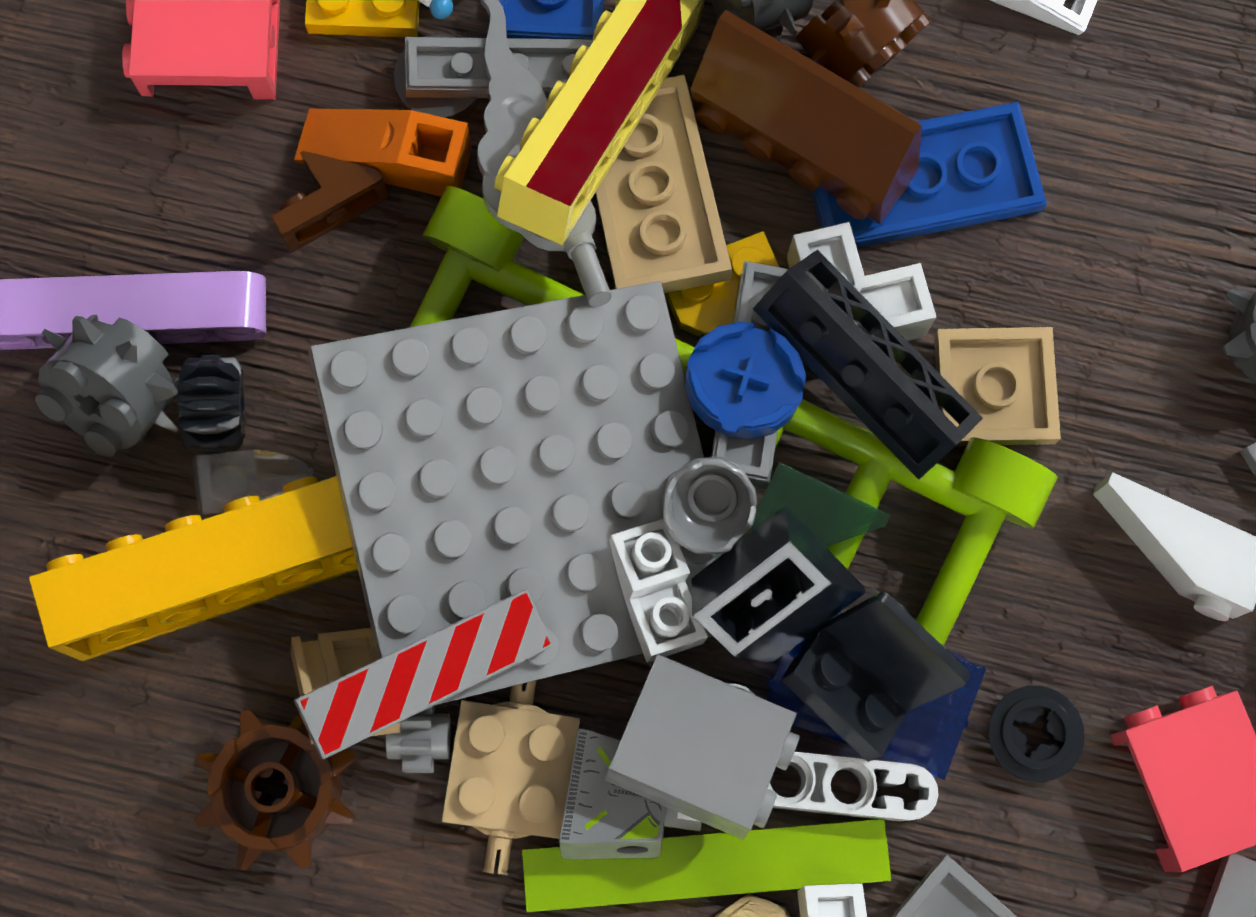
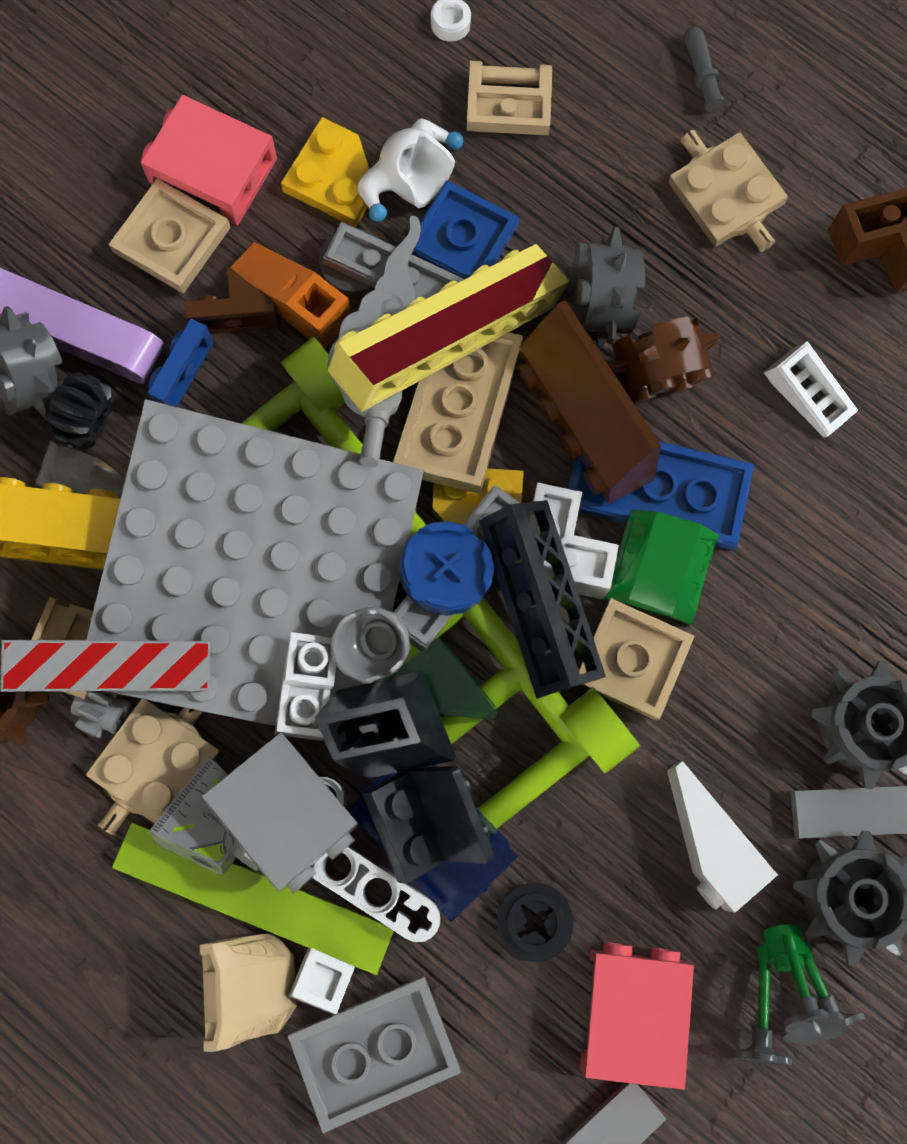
camera: 25 degrees right, 0 degrees up
(204, 147) = (170, 235): none -> tan plate
(300, 274) = (186, 356): none -> blue plate
(975, 262) = (662, 564): none -> green slope

